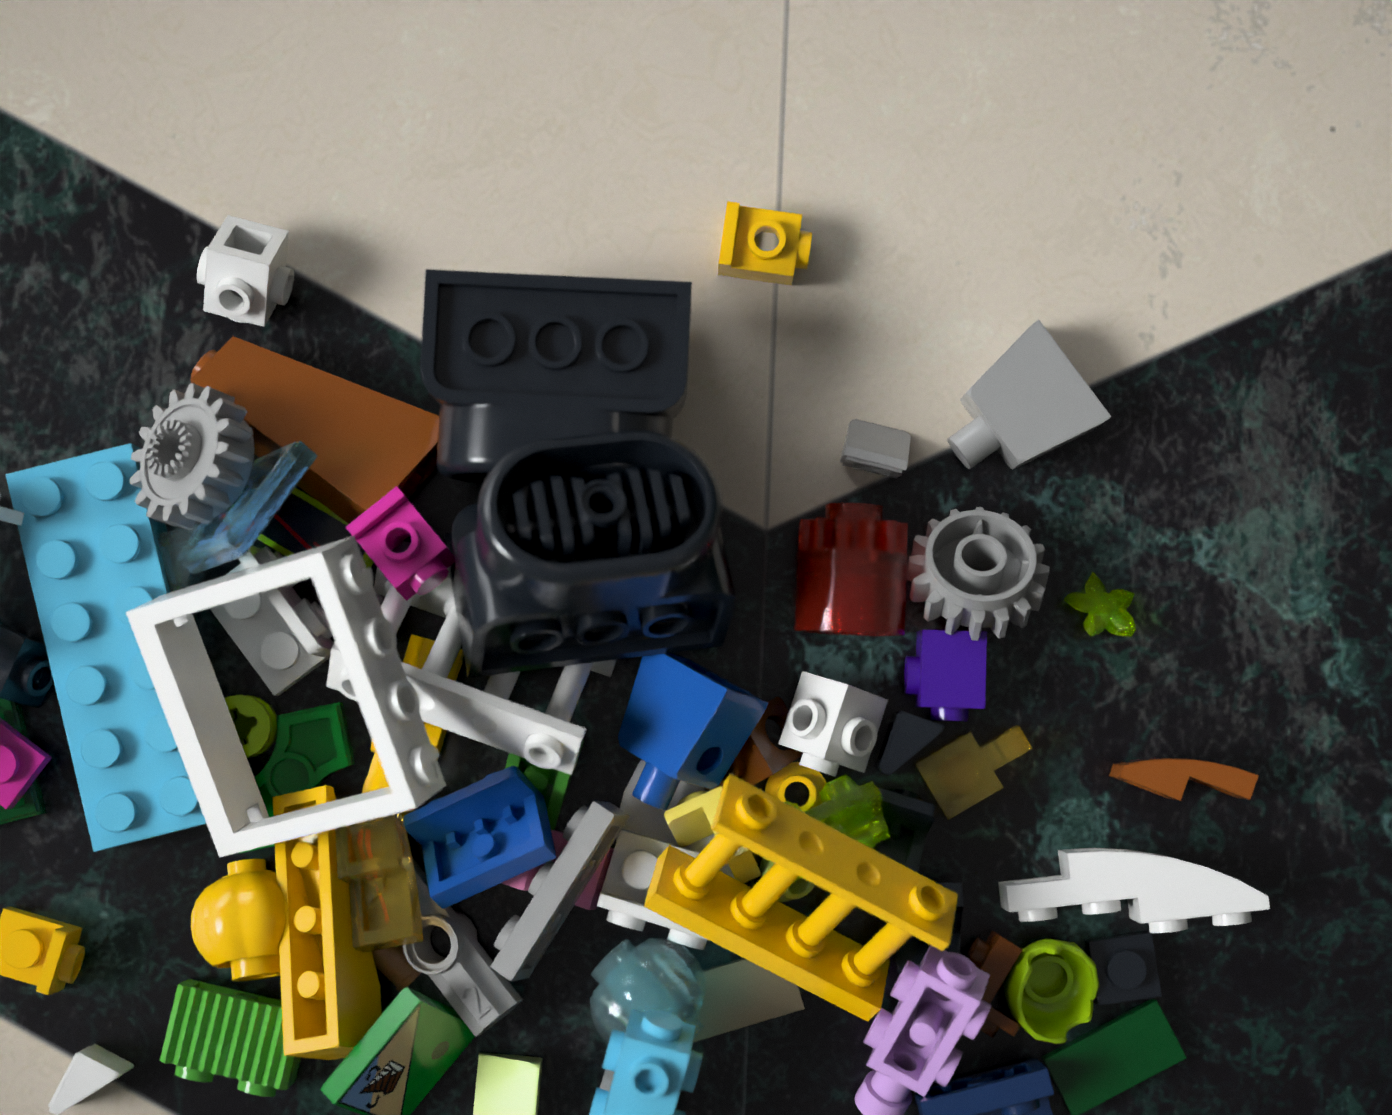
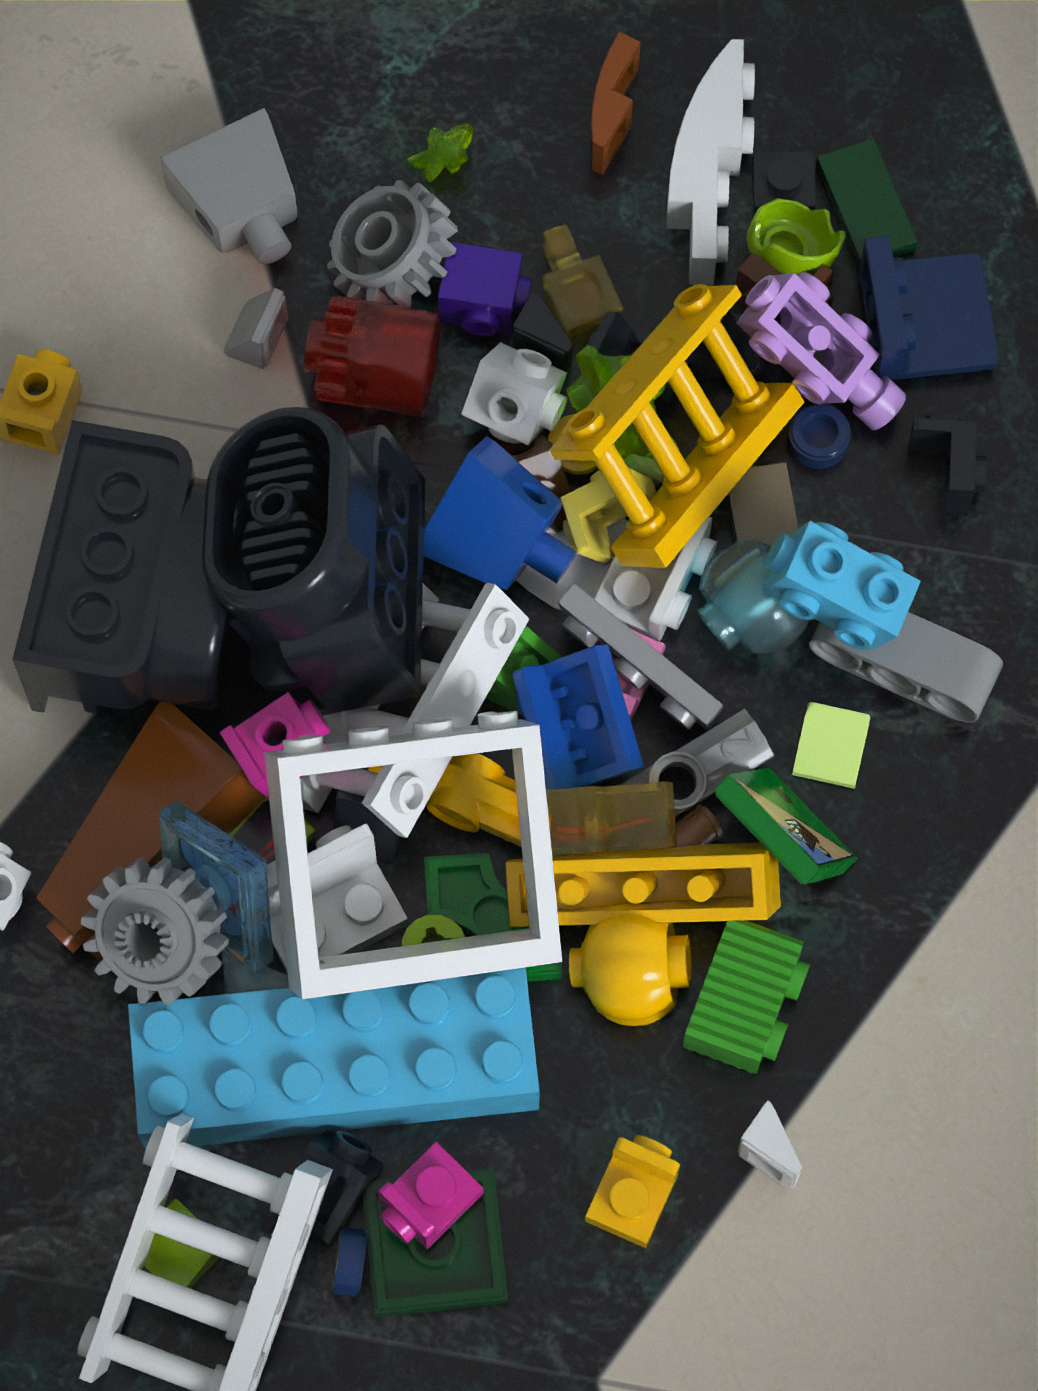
camera: 80 degrees left, 15 degrees down
(840, 1039) = (818, 436): none -> dark blue tile

